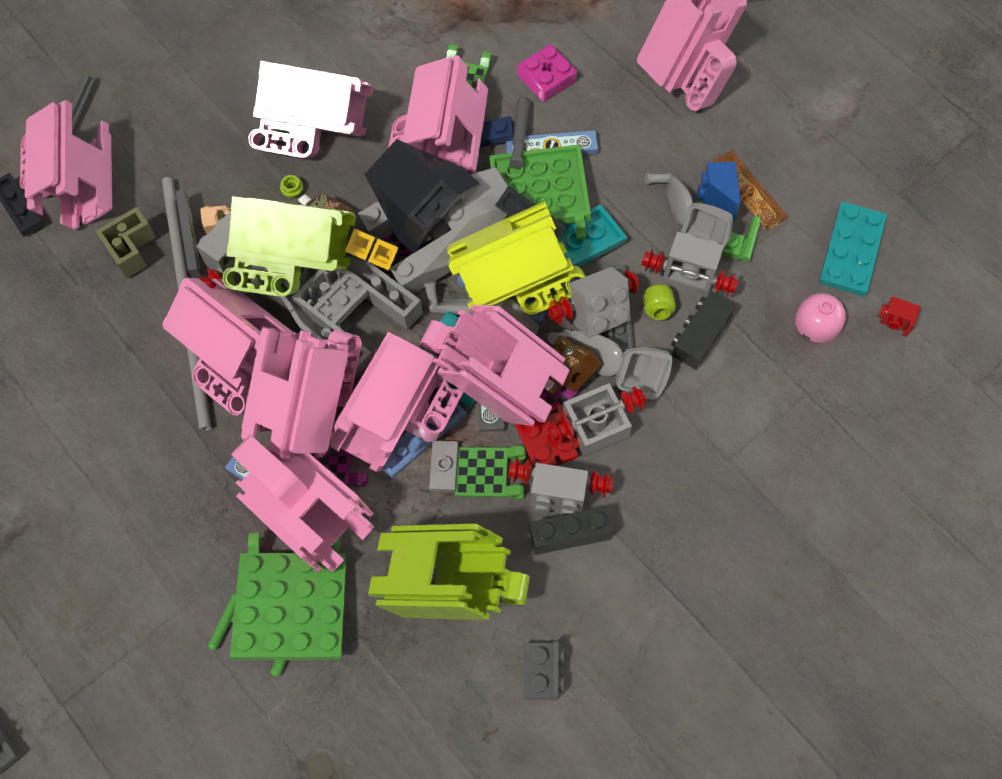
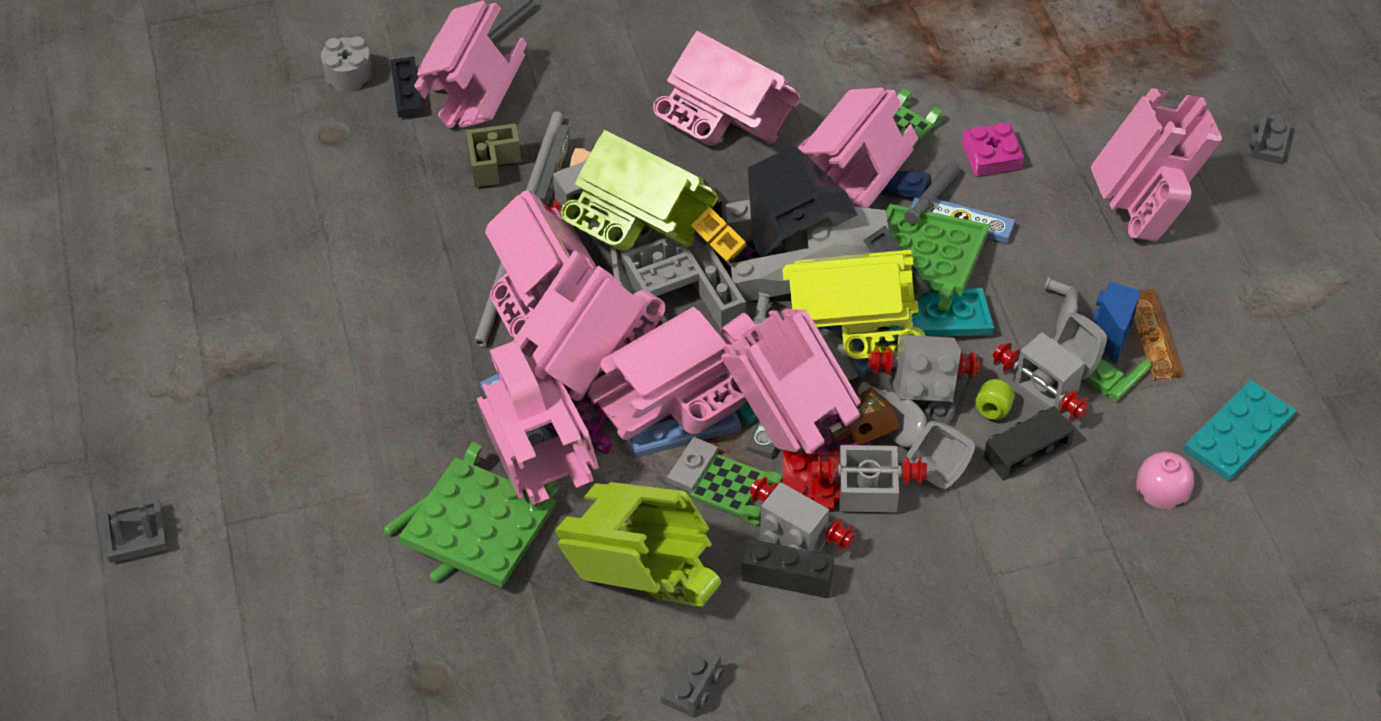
camera: 25 degrees right, 15 degrees down
(289, 181) = (677, 158): lime plate -> none
(899, 315) = (1254, 509): red brick -> none

